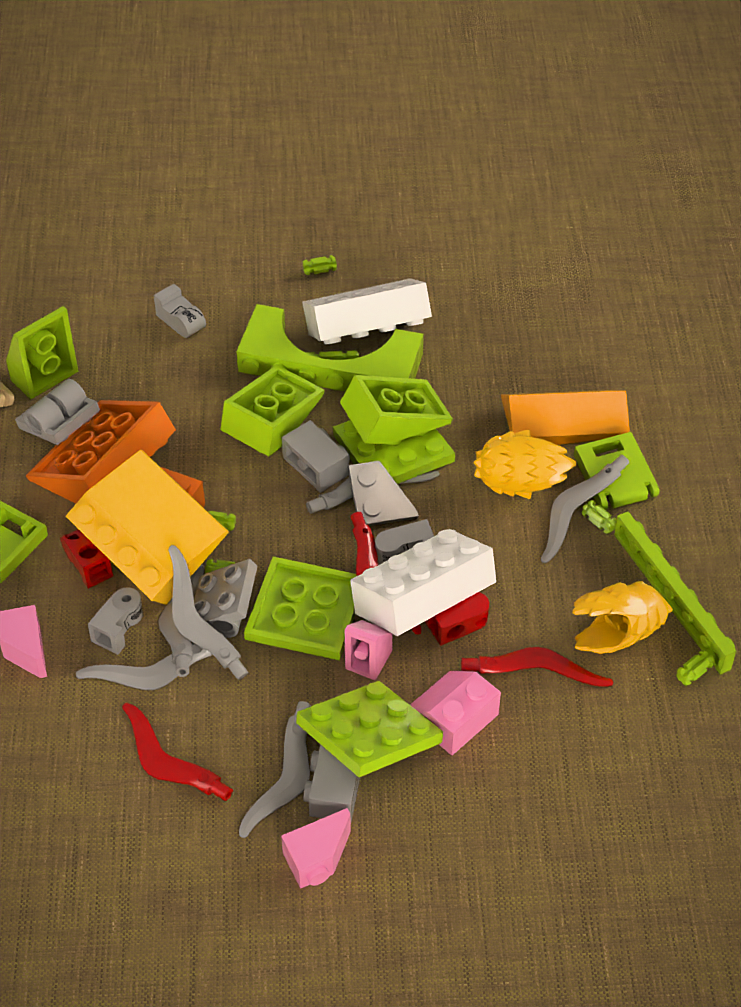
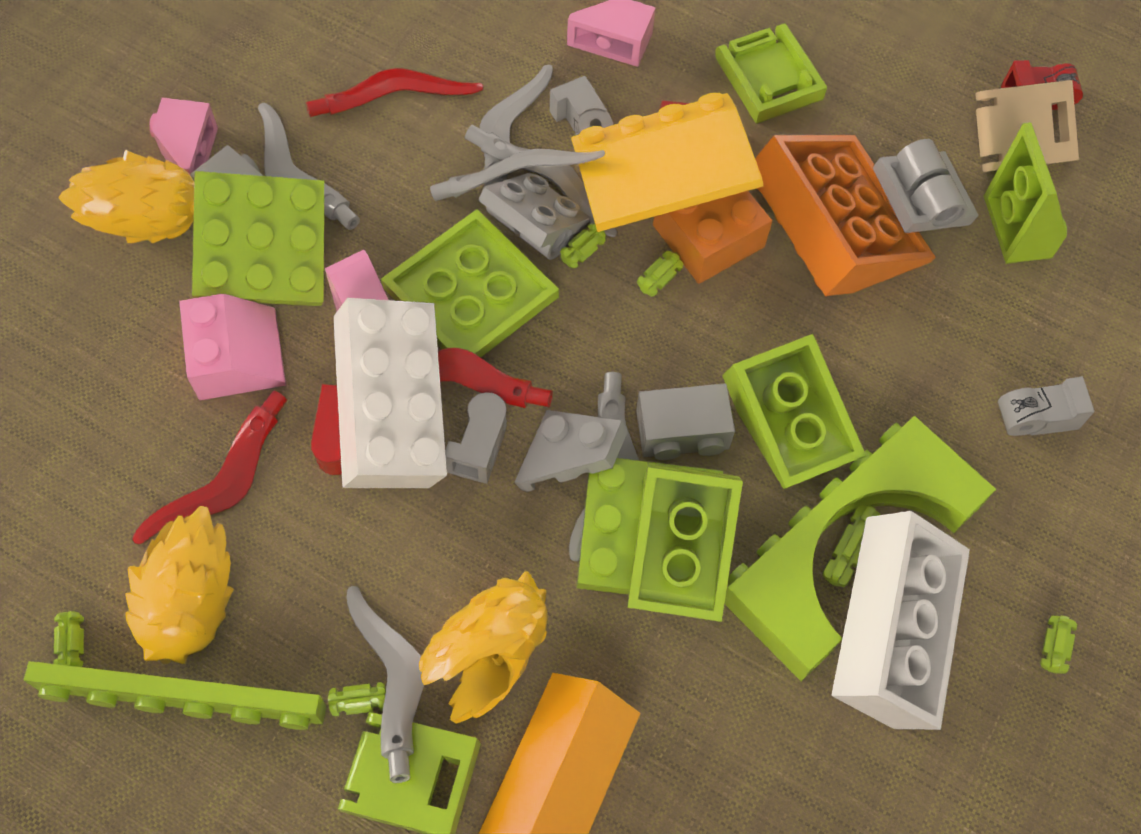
camera: 120 degrees right, 15 degrees up
(391, 827) = (133, 198): none -> yellow head

